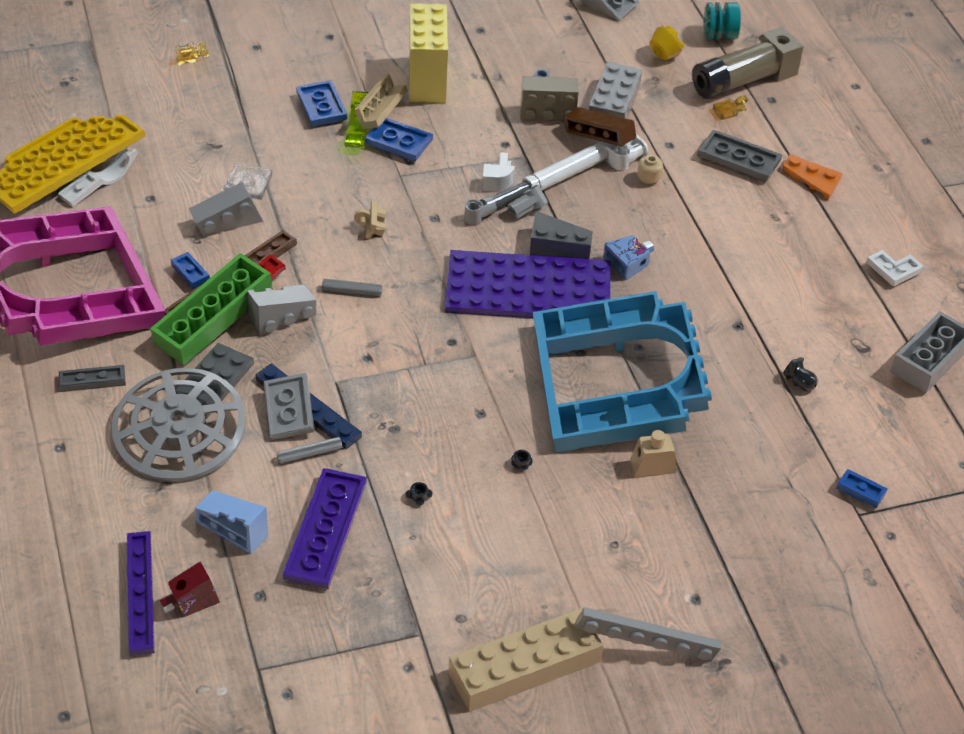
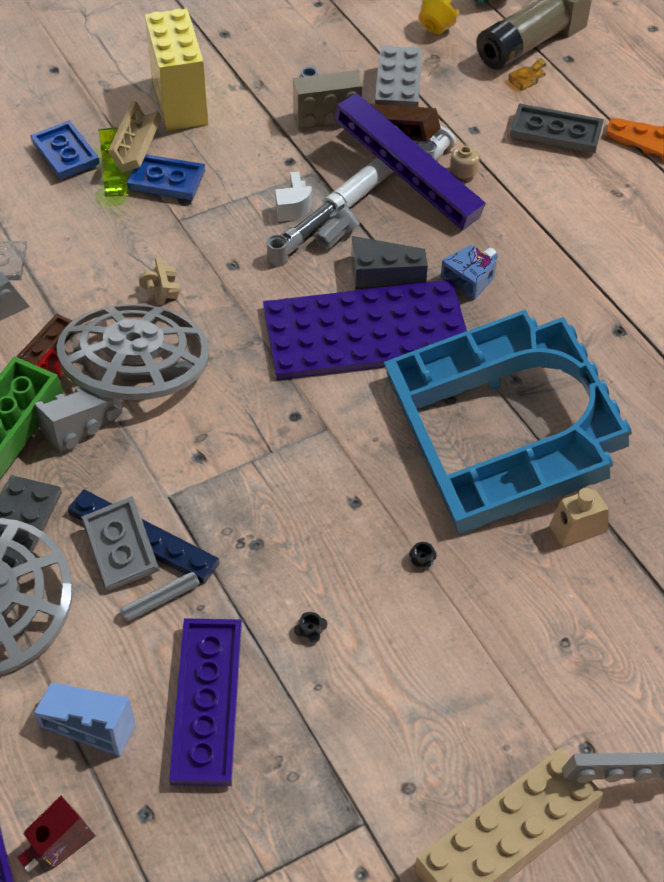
camera: 10 degrees left, 5 degrees up
(335, 261) = (132, 343): none -> light grey dish
(602, 160) = (409, 161): none -> dark purple brick

